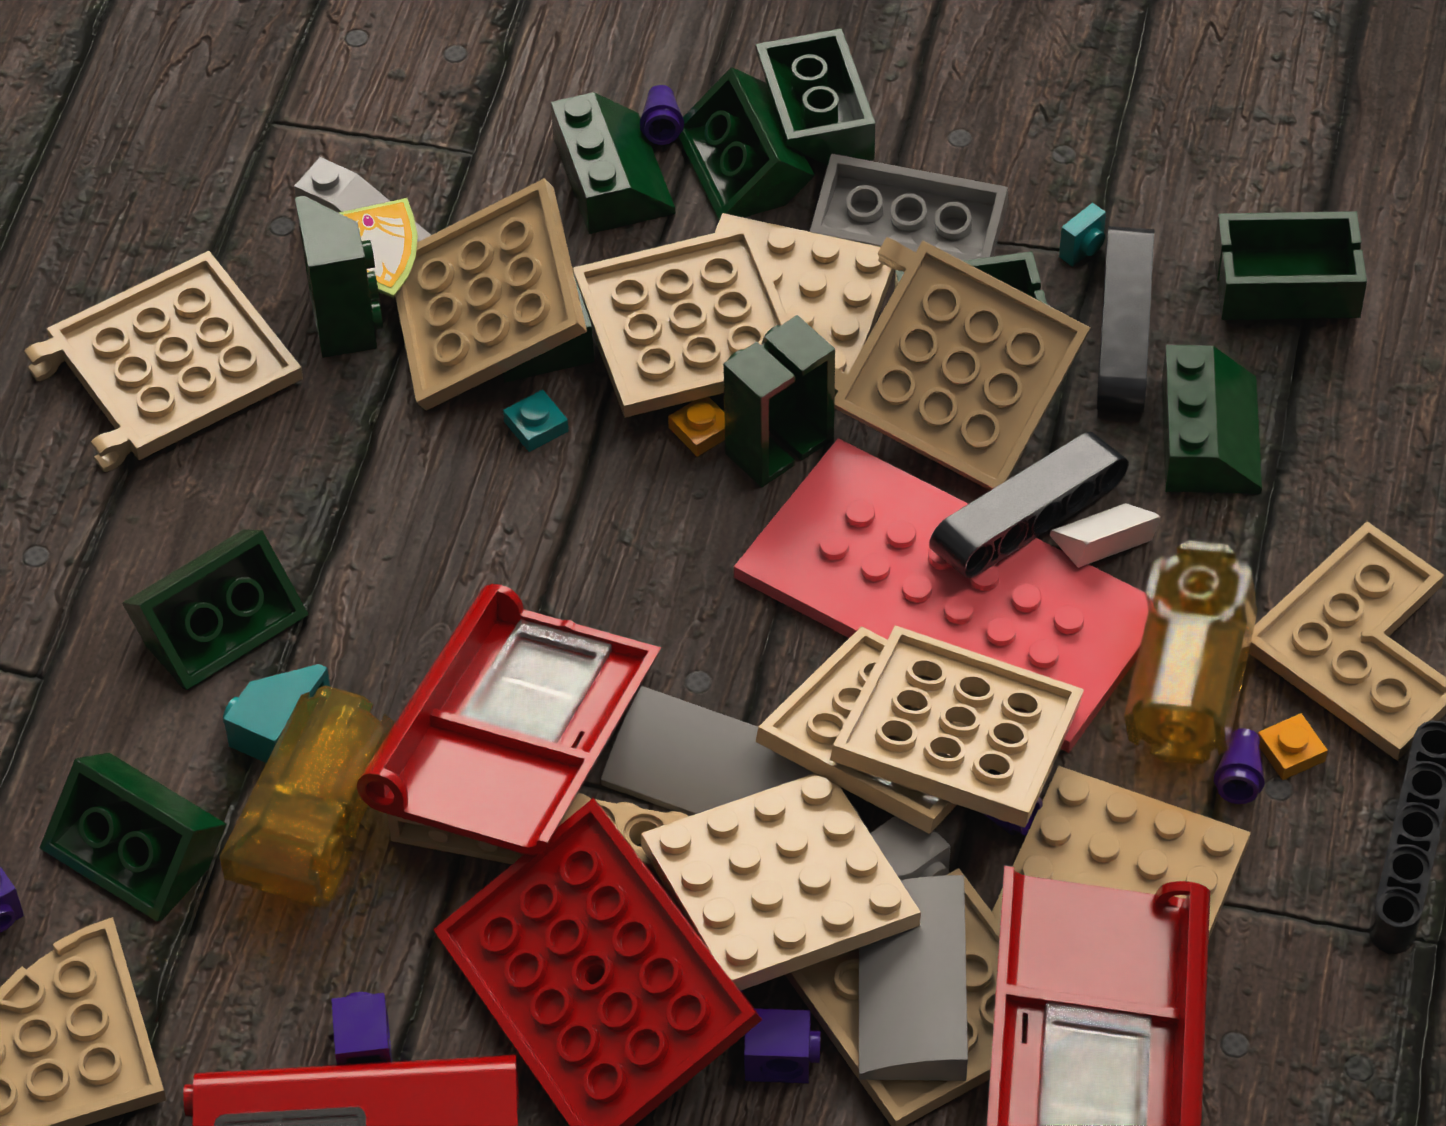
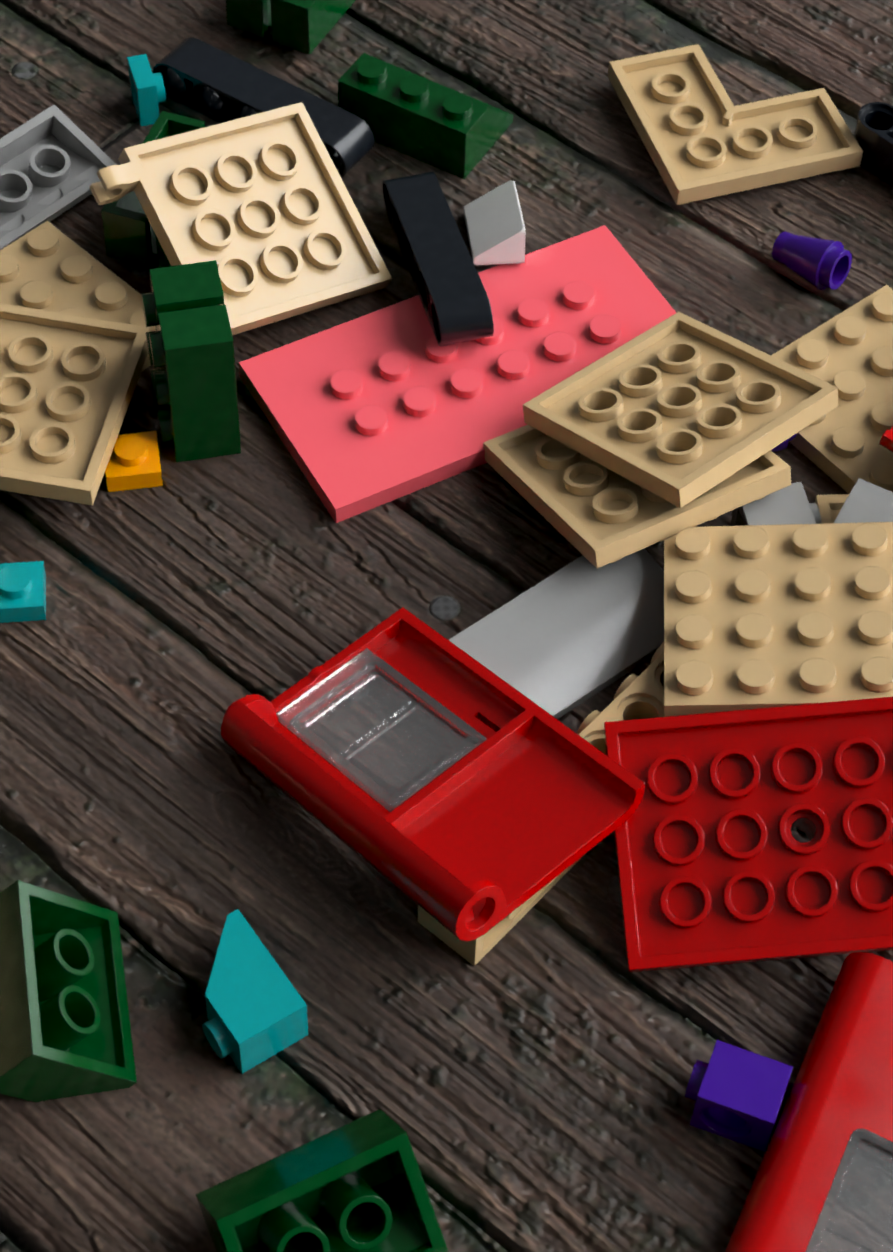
camera: 65 degrees left, 0 degrees up
(307, 800) = (412, 1002): clear yellow brick -> none
(1192, 653) = (695, 216): clear yellow brick -> none
(1292, 746) = (805, 216): light orange plate -> none

